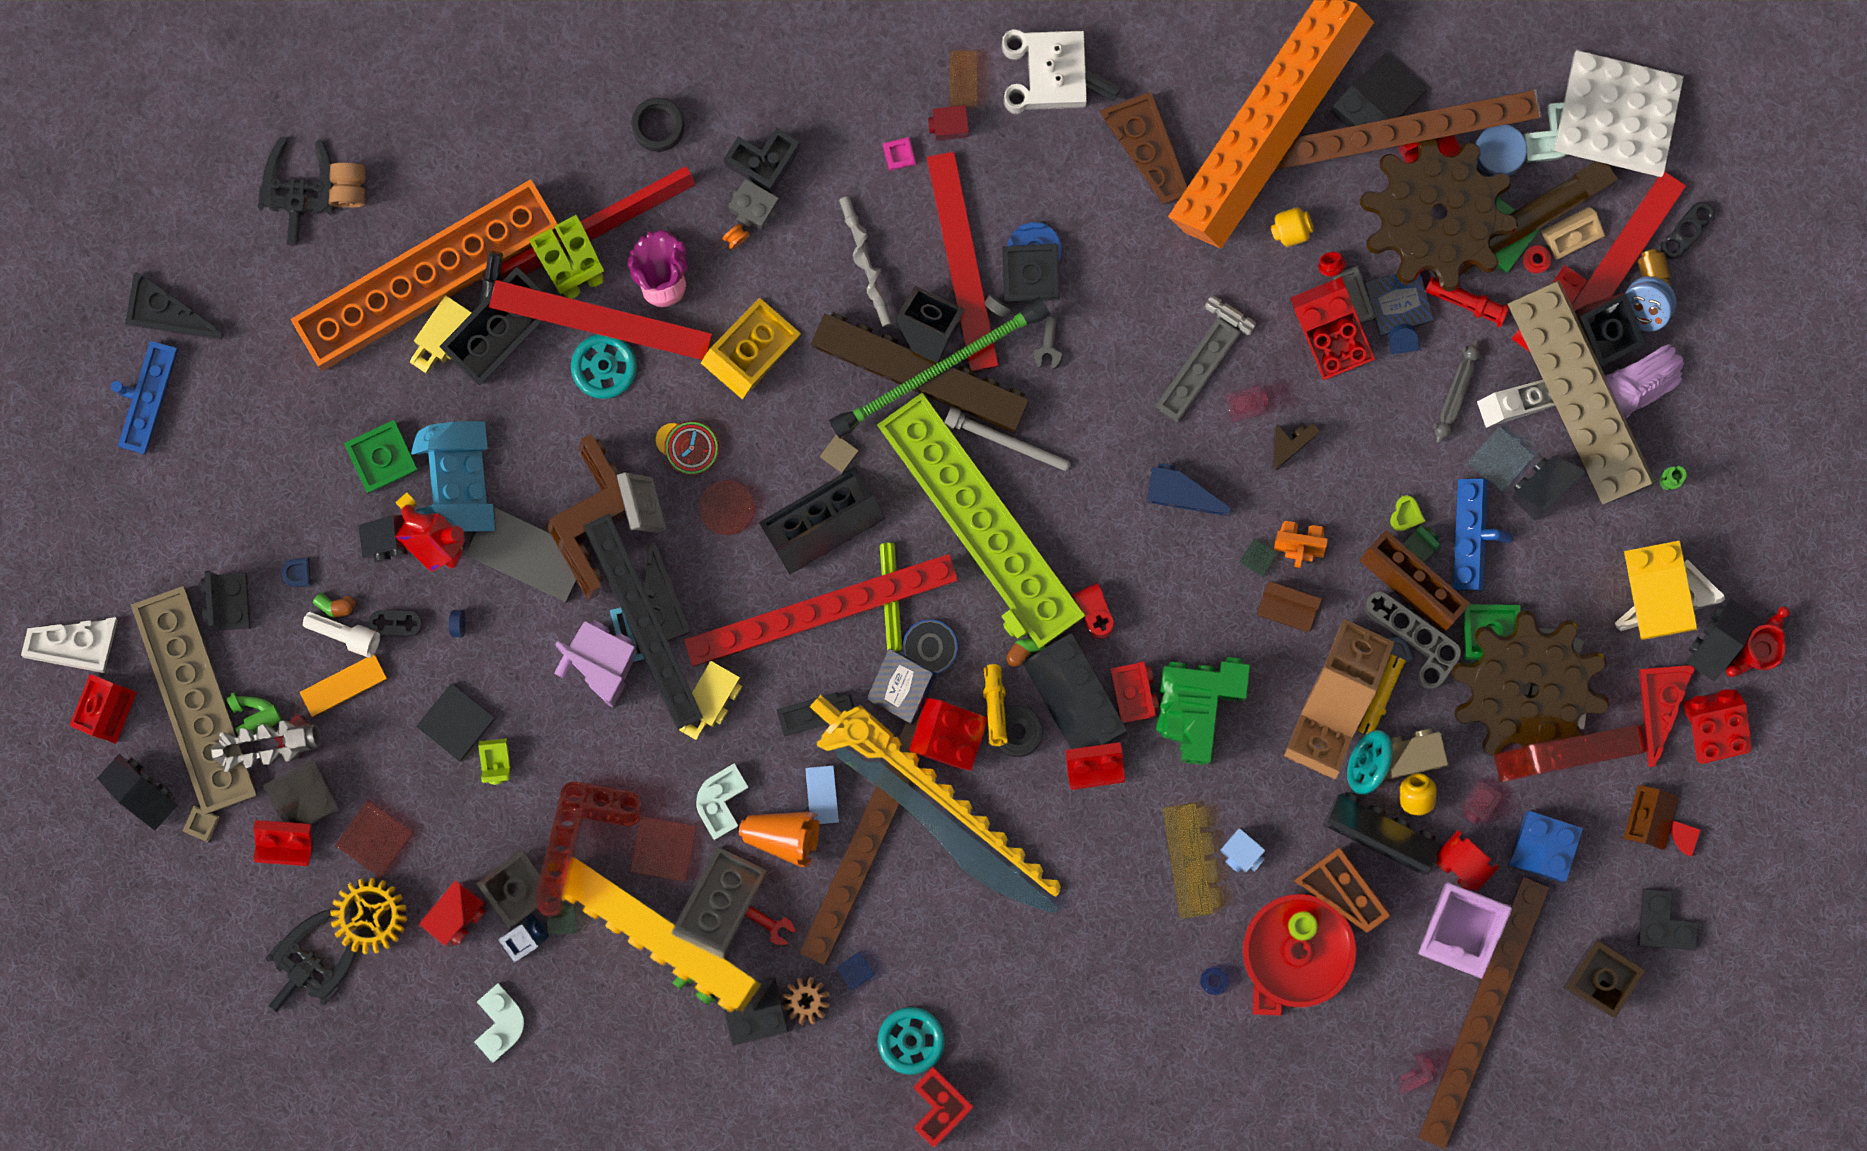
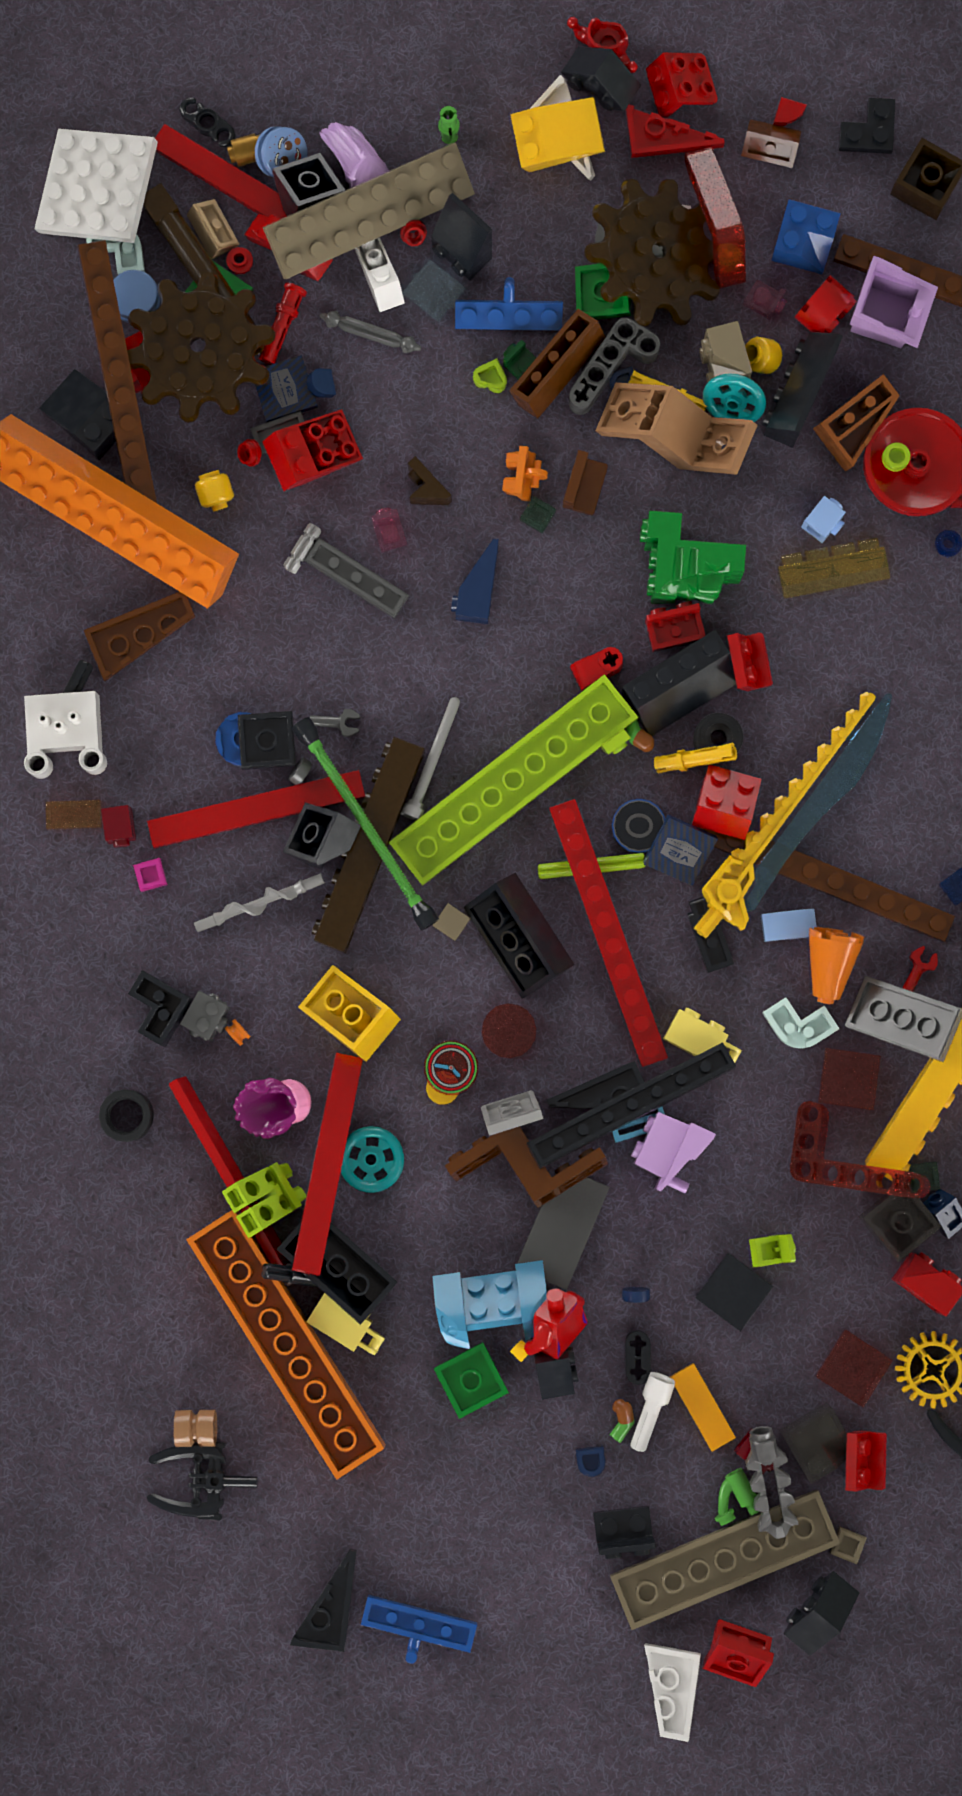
camera: 90 degrees left, 0 degrees up
(1560, 439) = (416, 238): none -> red plate

